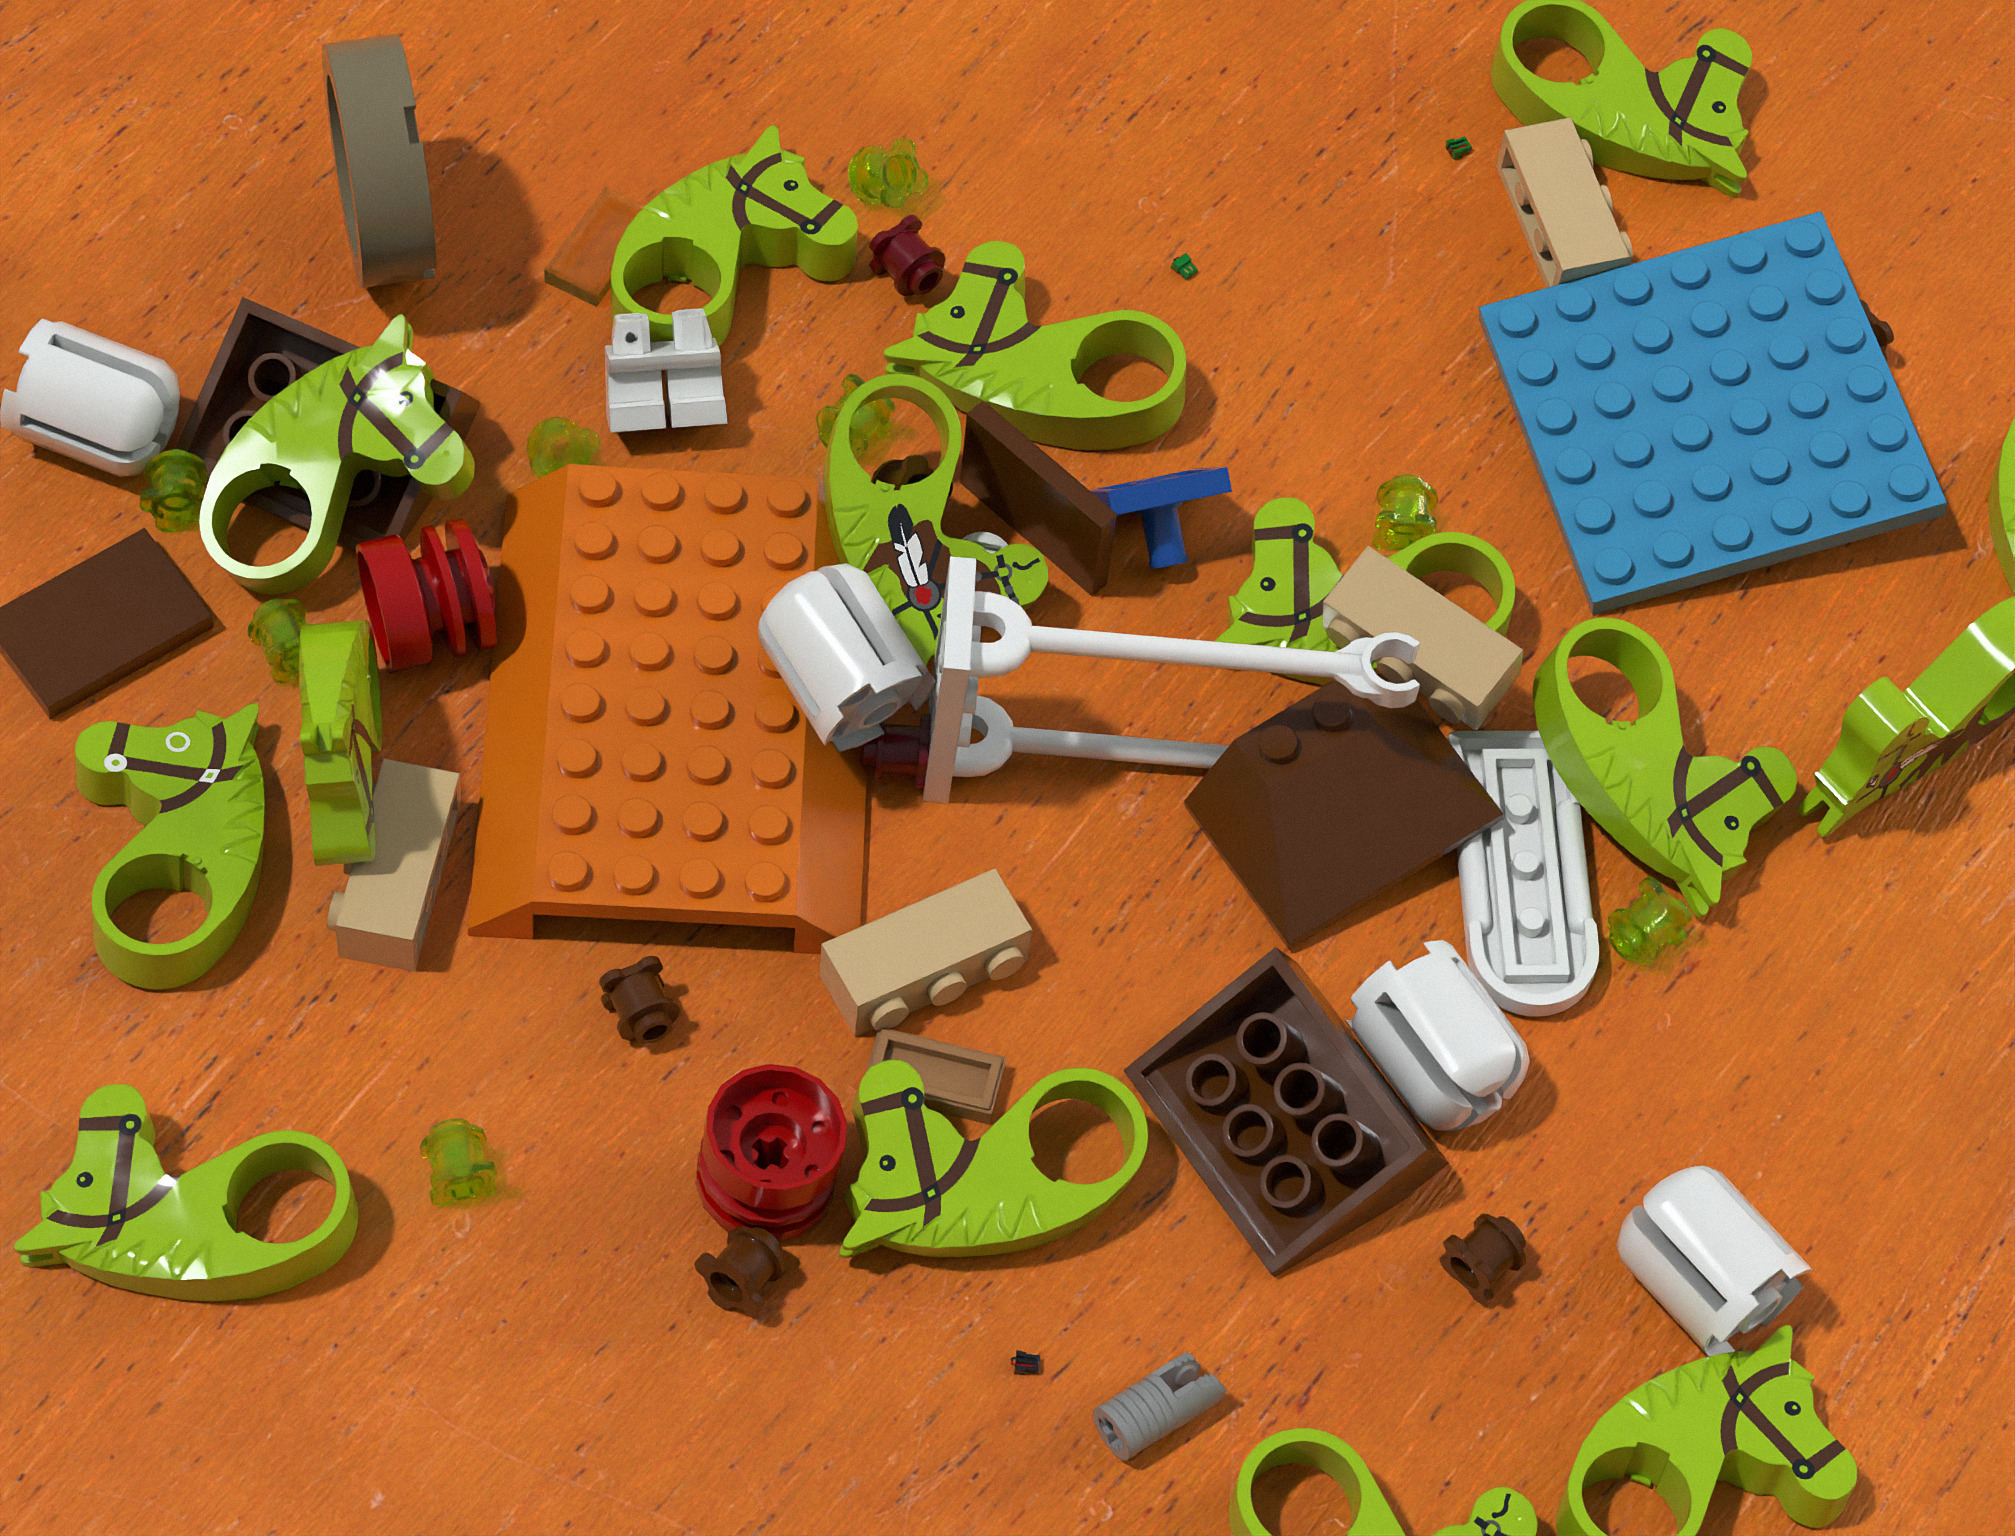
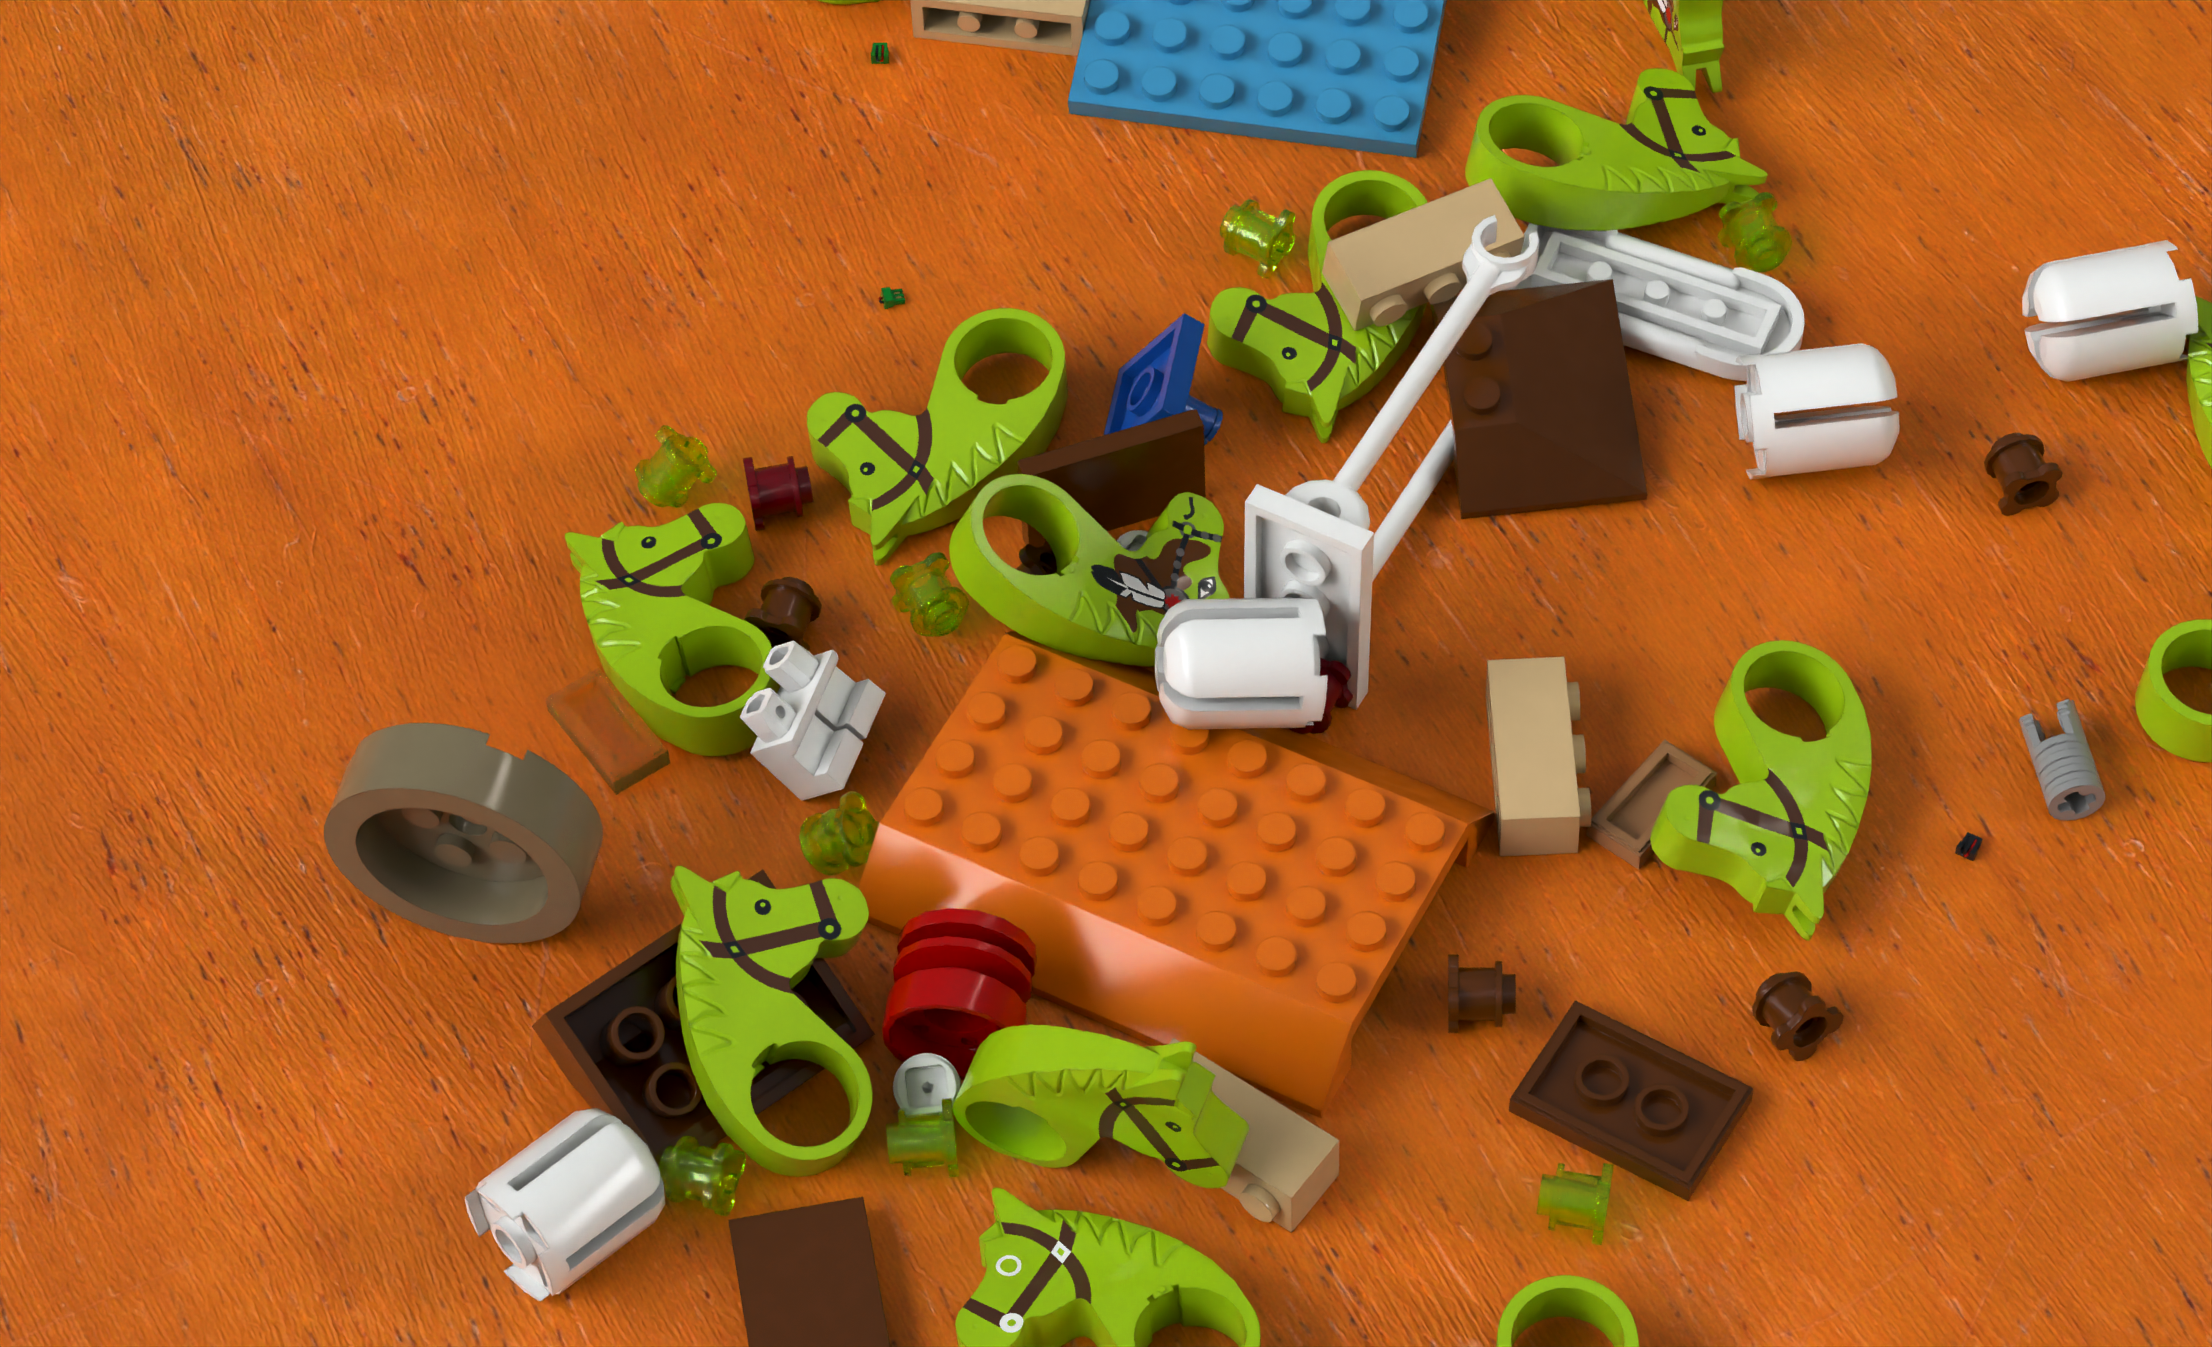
camera: 55 degrees left, 5 degrees down
(344, 605) = (924, 1083): none -> white tile
(597, 1173) = (1631, 1100): none -> reddish brown tile
(771, 1151) = (1700, 938): red wheel -> none
(777, 319) = (785, 611): none -> reddish brown brick
(1284, 1114) = (1822, 553): reddish brown slope -> none

